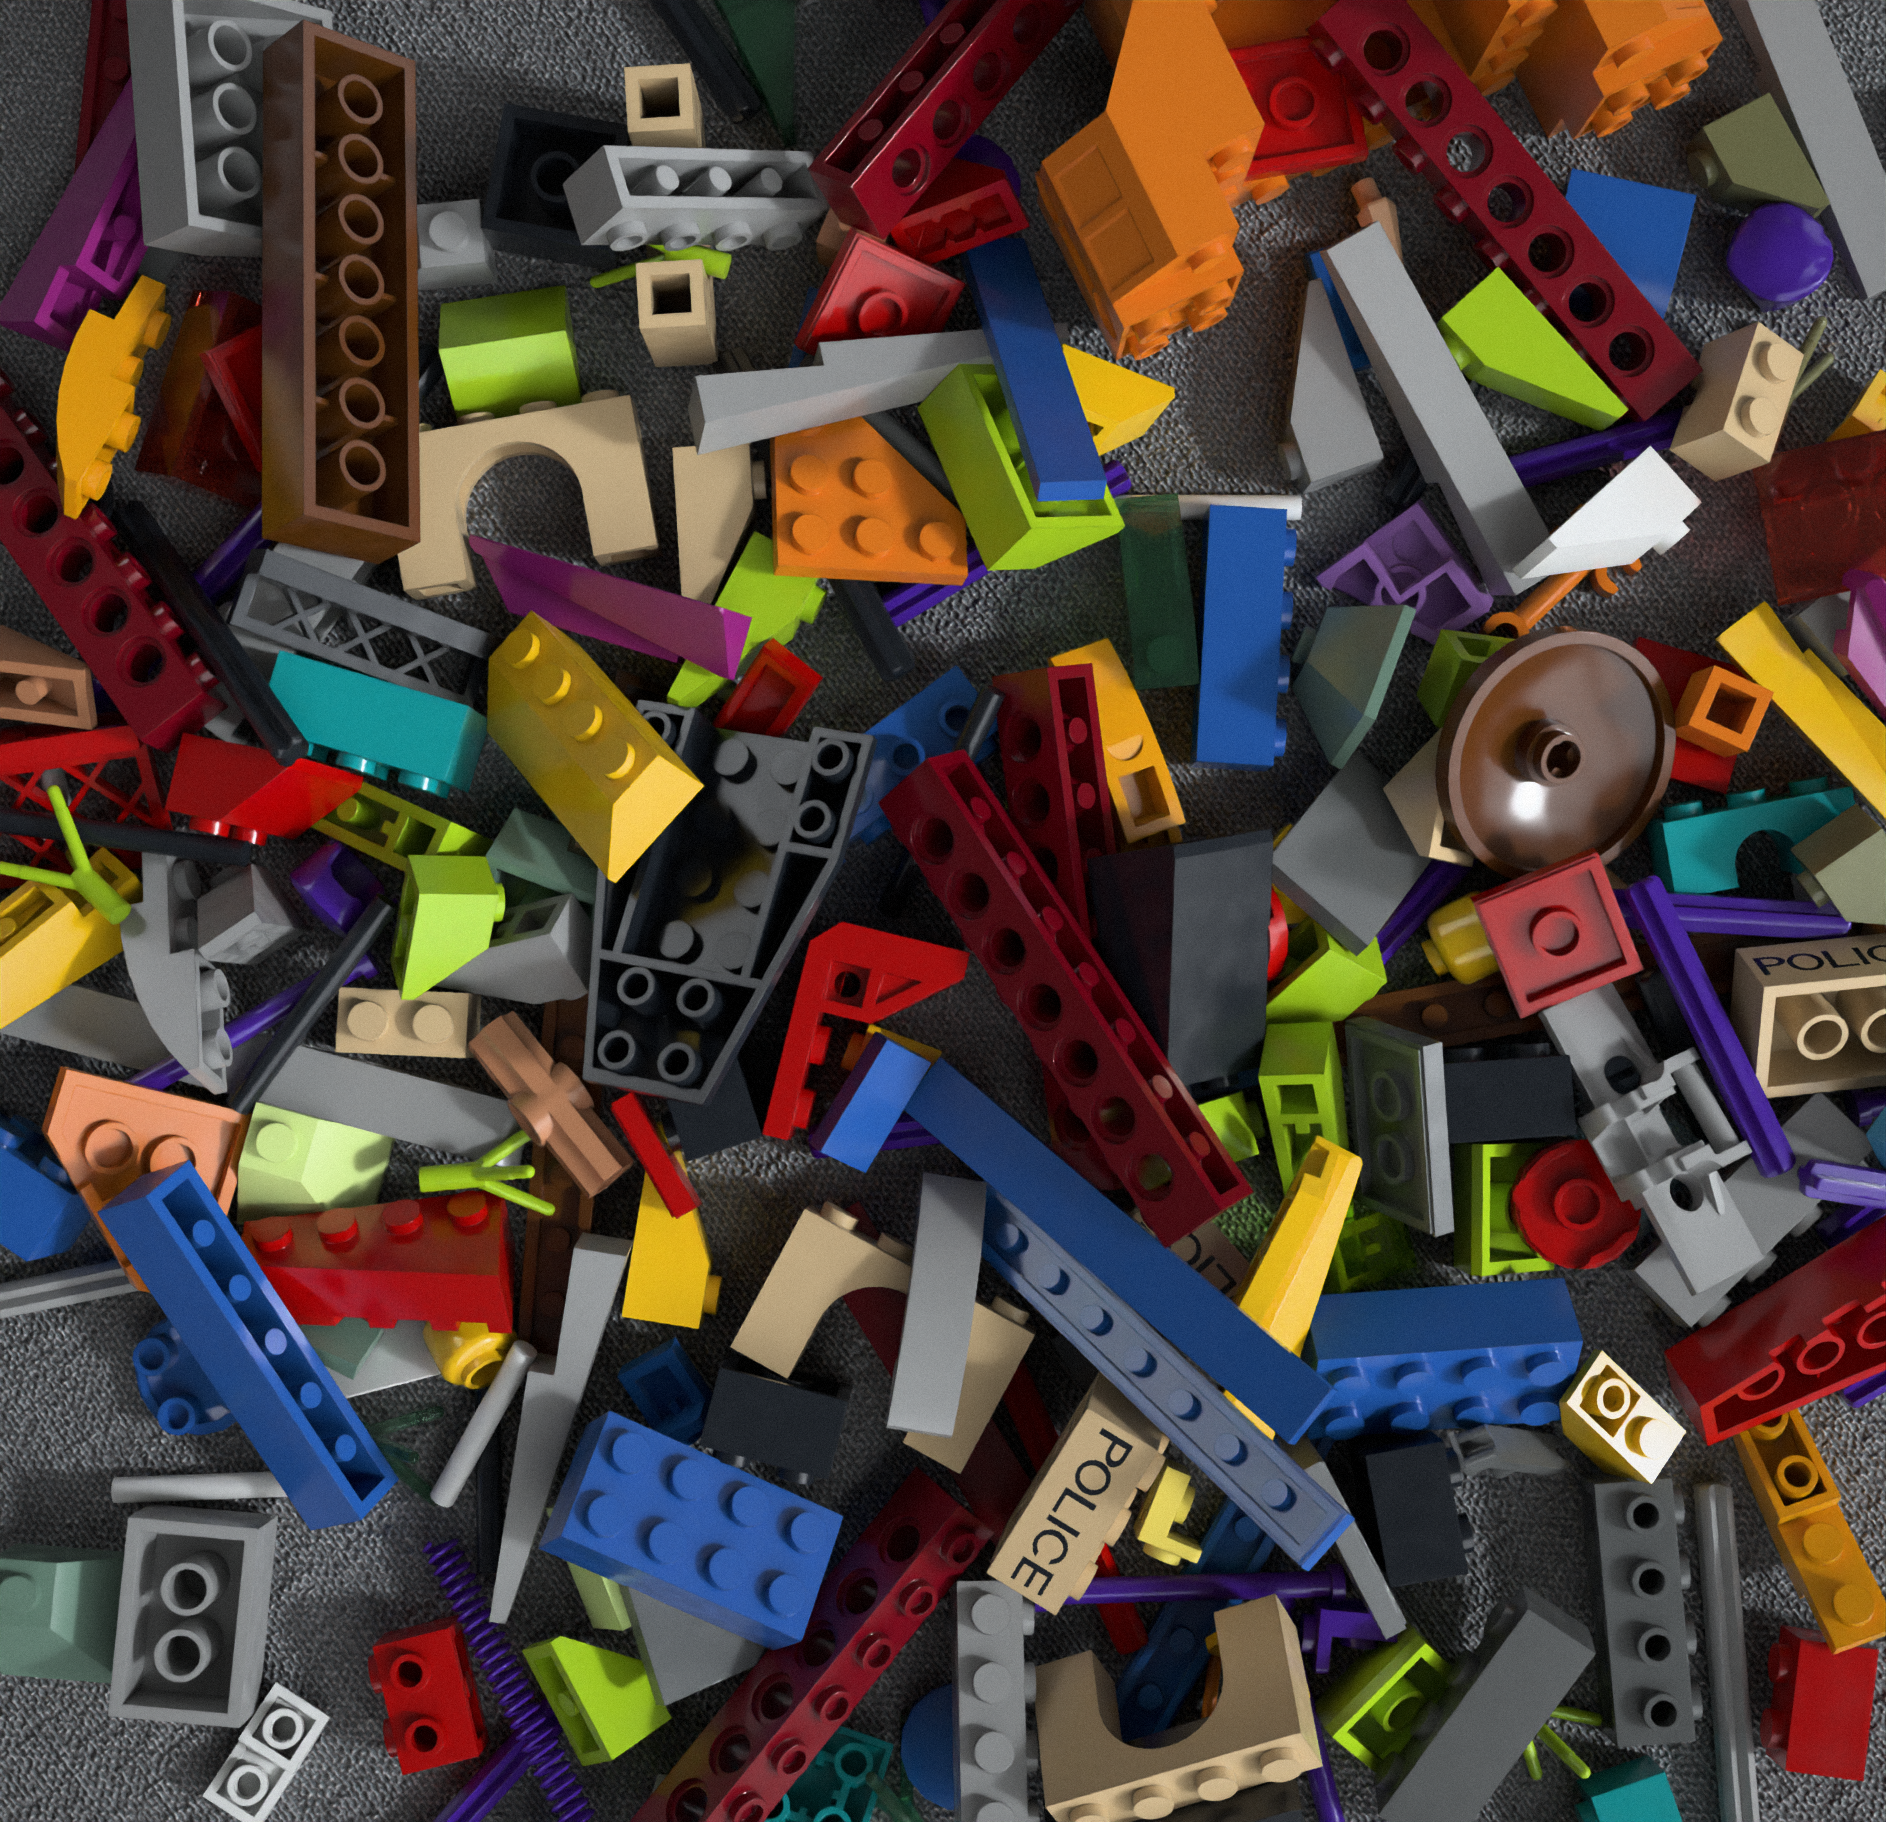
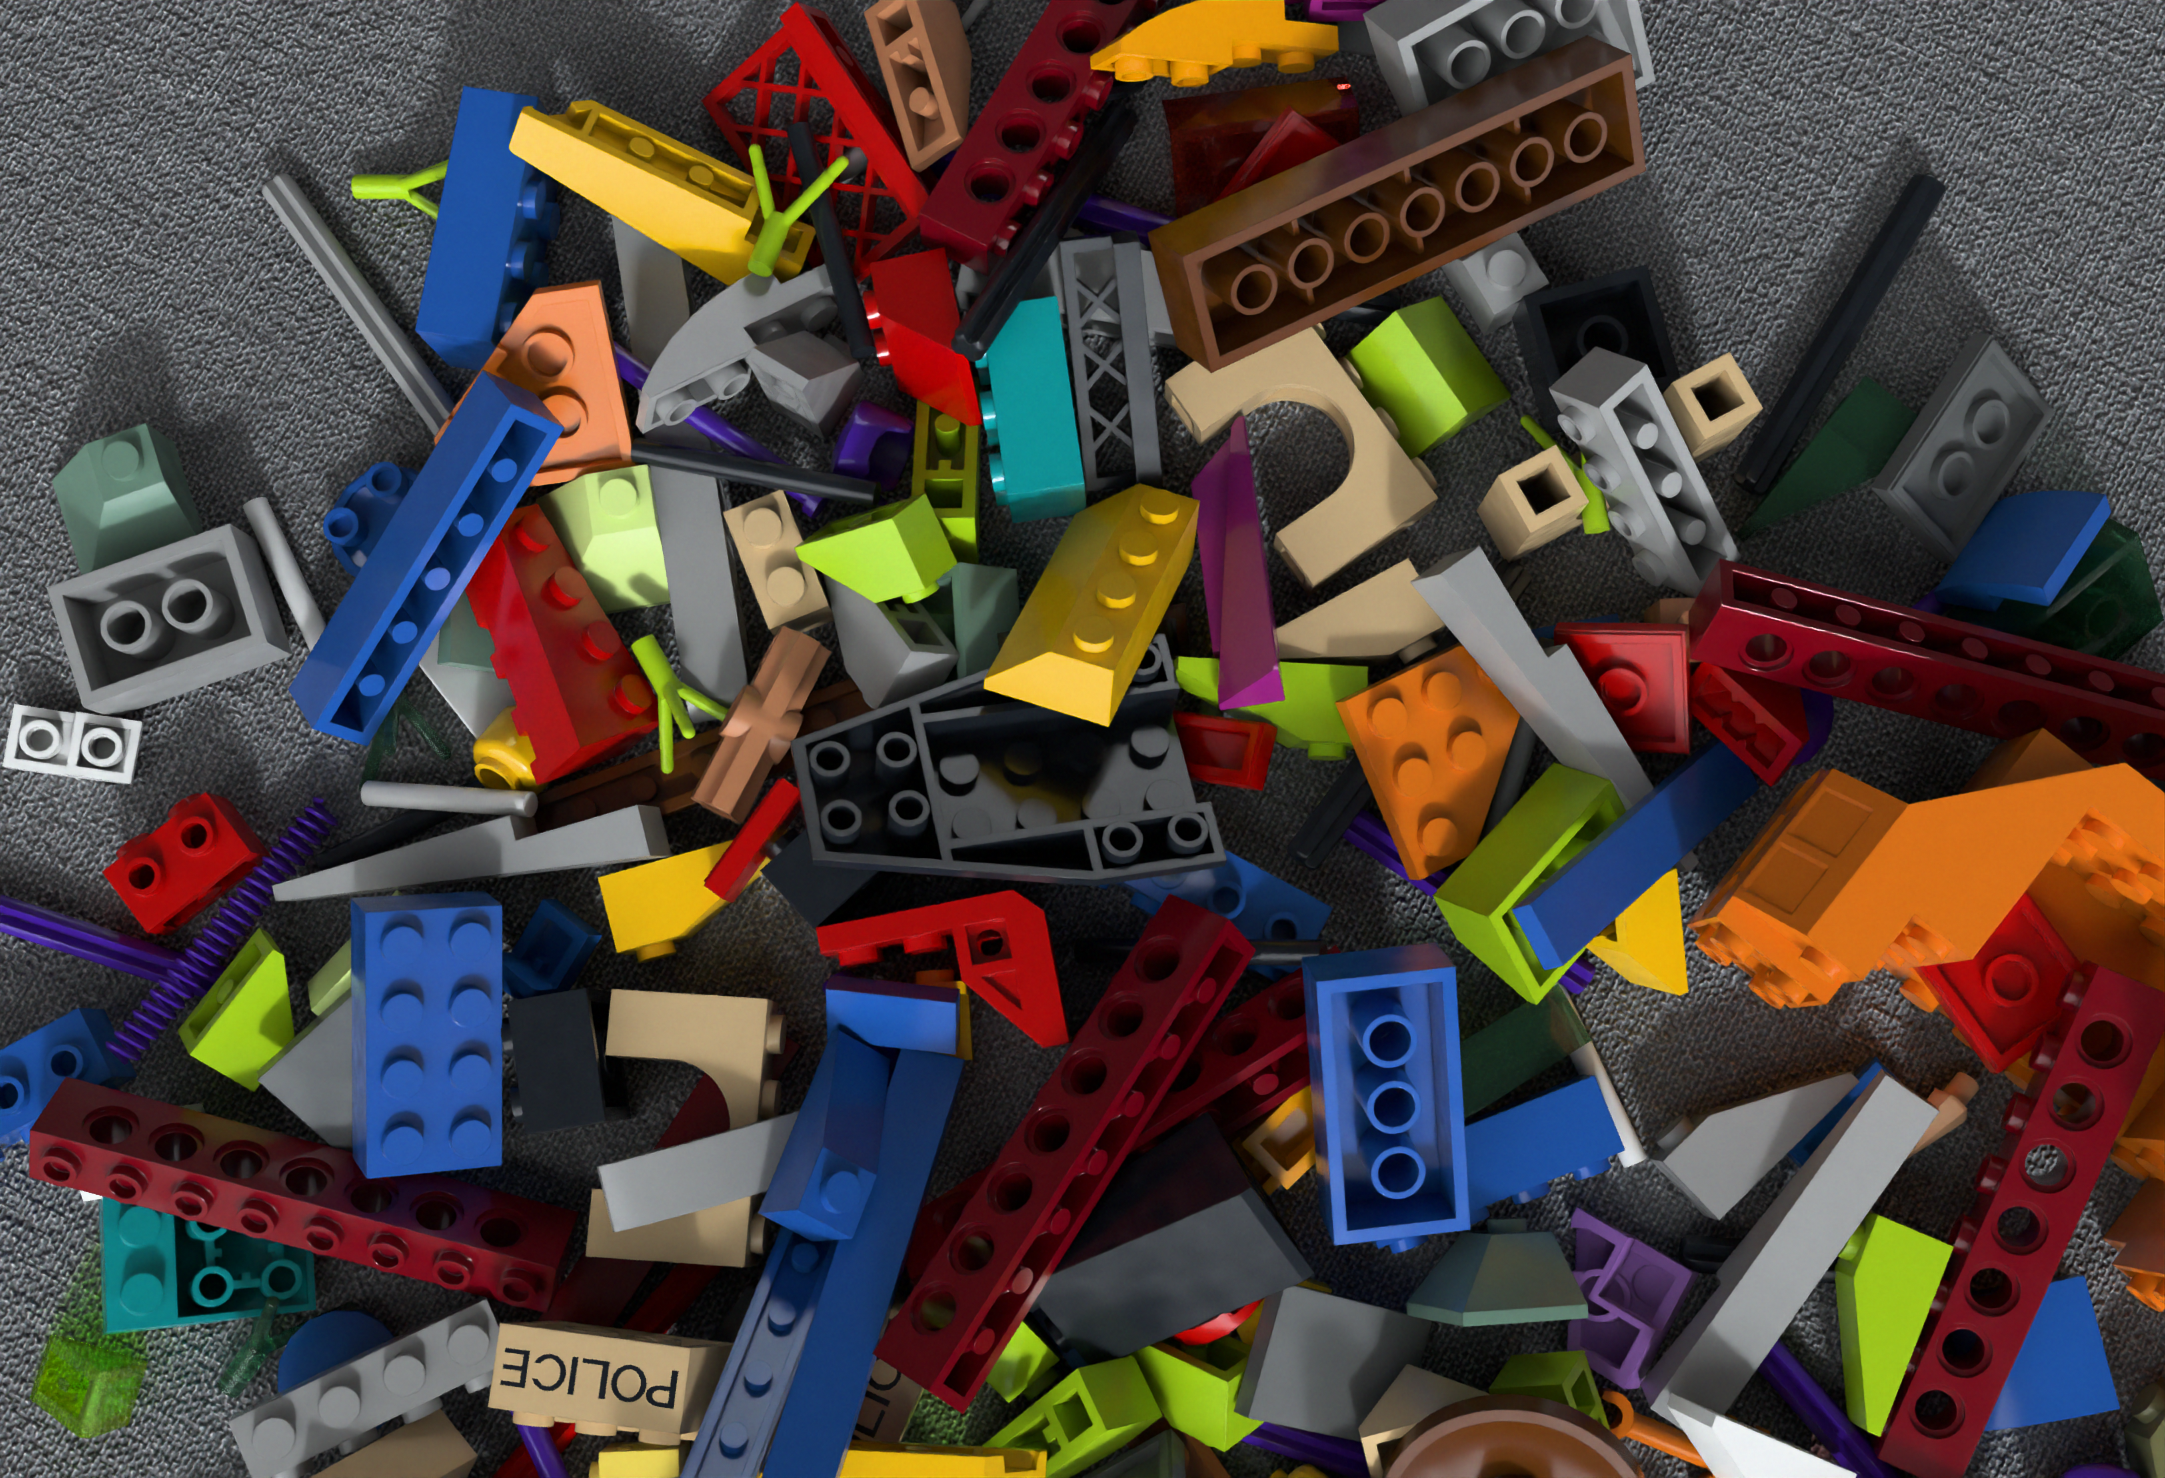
camera: 75 degrees right, 5 degrees down
(963, 1206) = (833, 1145): none -> blue slope
(1143, 690) = (1386, 1092): none -> blue brick

